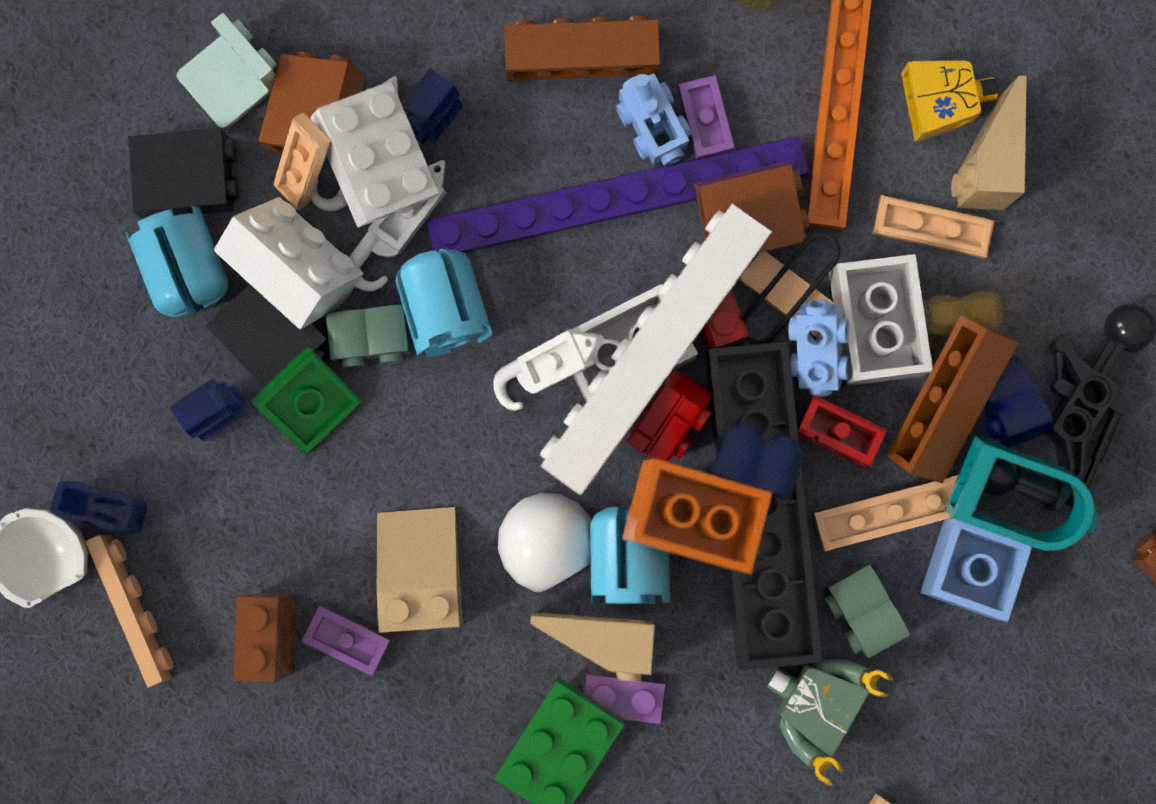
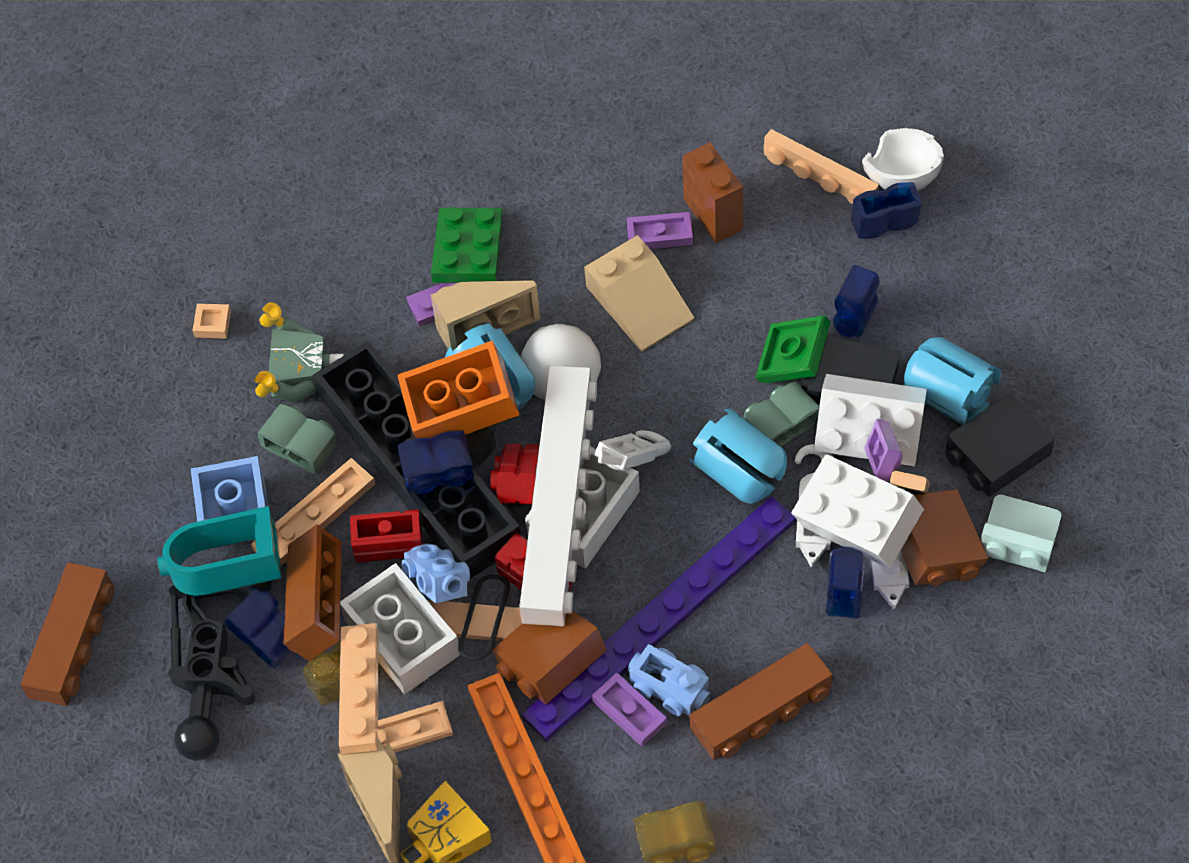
camera: 150 degrees right, 25 degrees down
(308, 194) = (883, 450): none -> medium lavender plate
(968, 251) = (358, 689): none -> light nougat plate

